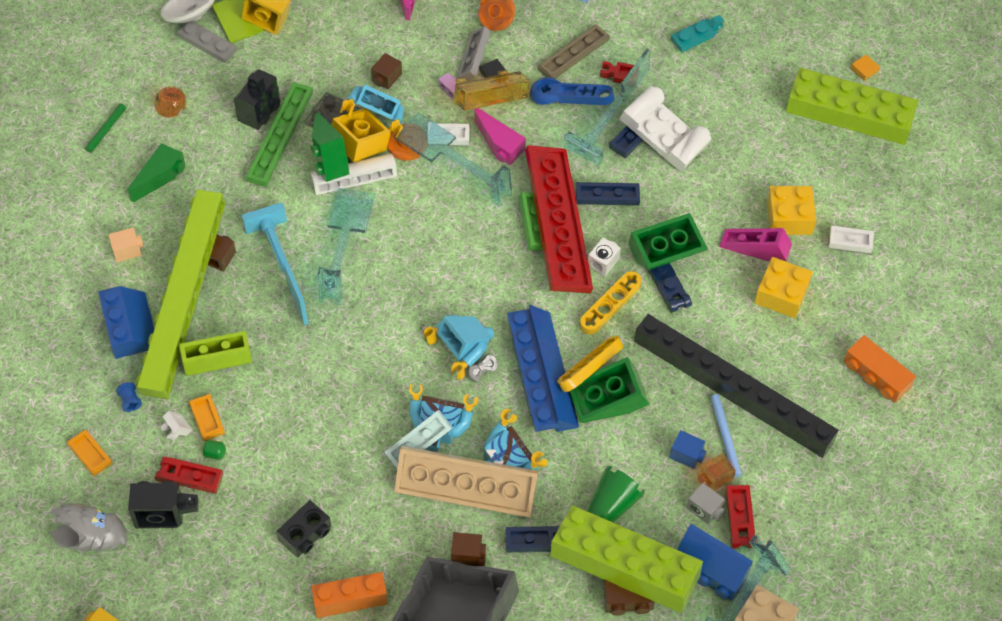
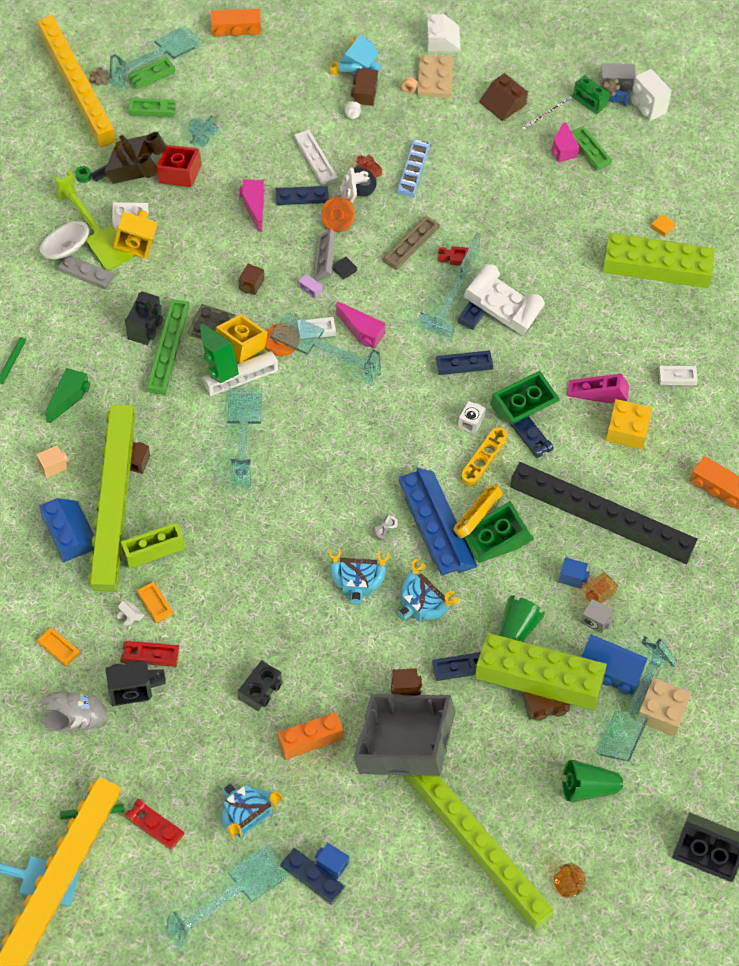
camera: 10 degrees left, 0 degrees up
(128, 396) = (82, 592): blue bush -> none
(170, 101) = (64, 329): clear orange hair -> none
(214, 449) = (168, 629): green piece -> none
(265, 220) = (172, 423): medium azure piece -> none
(377, 102) = (252, 308): medium azure torso -> none
(421, 436) = (344, 595): light aqua plate -> none
(464, 338) = (366, 503): medium azure torso -> none
(466, 481) = (391, 626): tan plate -> none
(491, 90) = (347, 284): clear yellow brick -> none
(530, 221) = (406, 395): bright green plate -> none
(558, 220) = (426, 390): red plate -> none
(569, 92) = (414, 278): blue beam -> none
(697, 33) = (514, 213): teal hinge -> none
(725, 434) = (601, 554): light blue bar -> none
(740, 515) = (627, 622): red plate -> none
(792, 209) = (623, 356): yellow brick -> none

